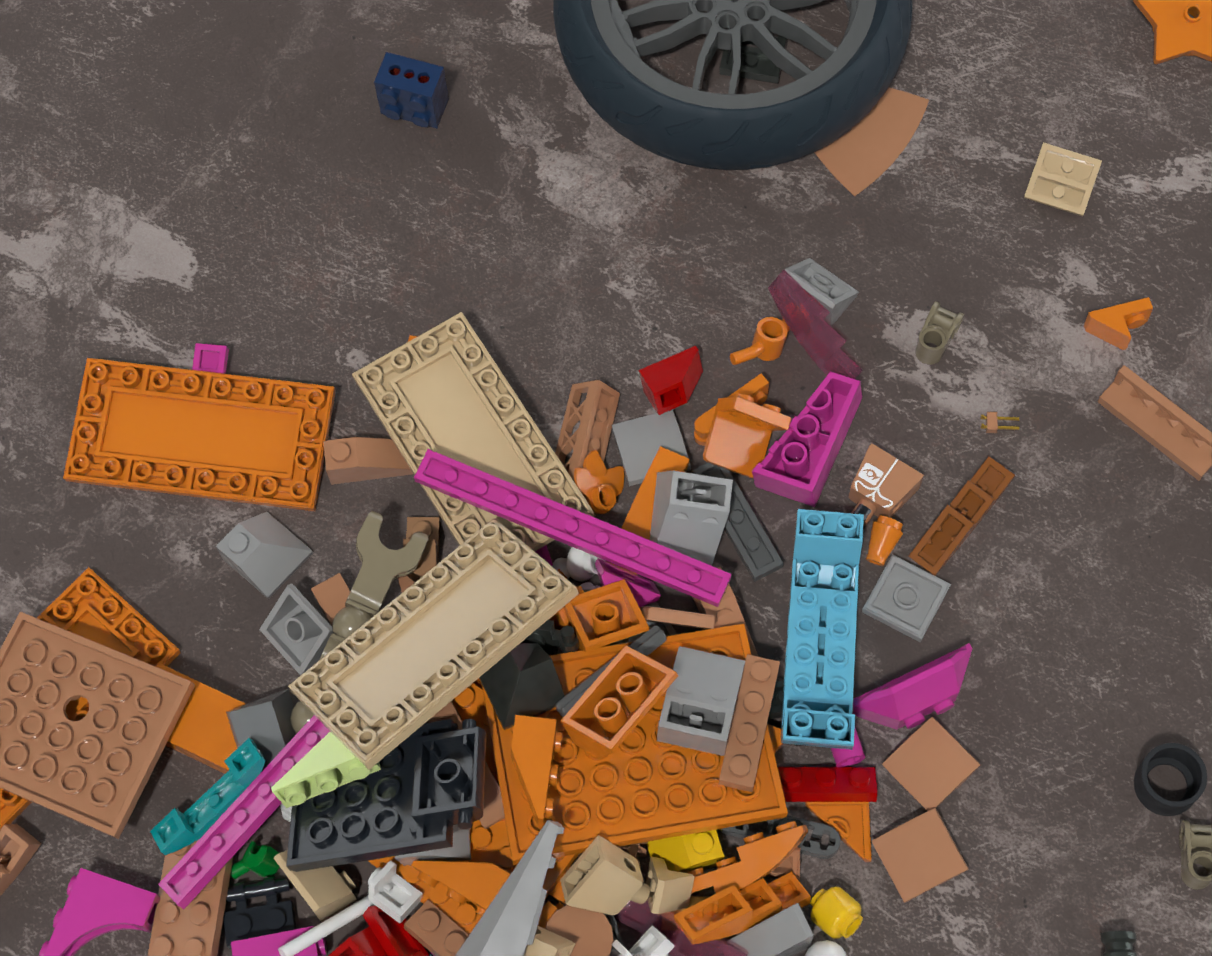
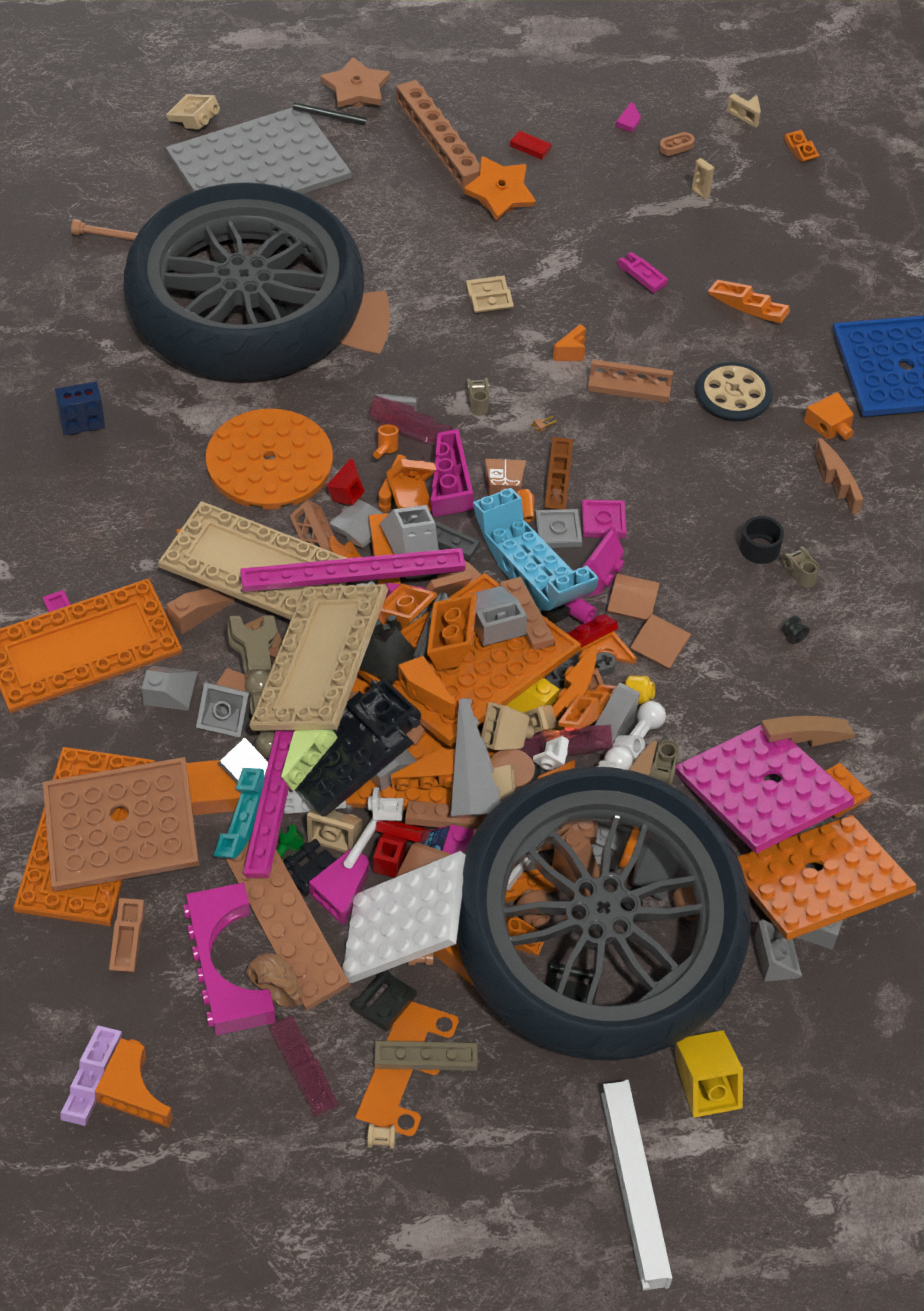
camera: 40 degrees left, 15 degrees down
(611, 326) = (244, 475): none -> orange plate
(978, 617) = (601, 515): none -> dark pink tile

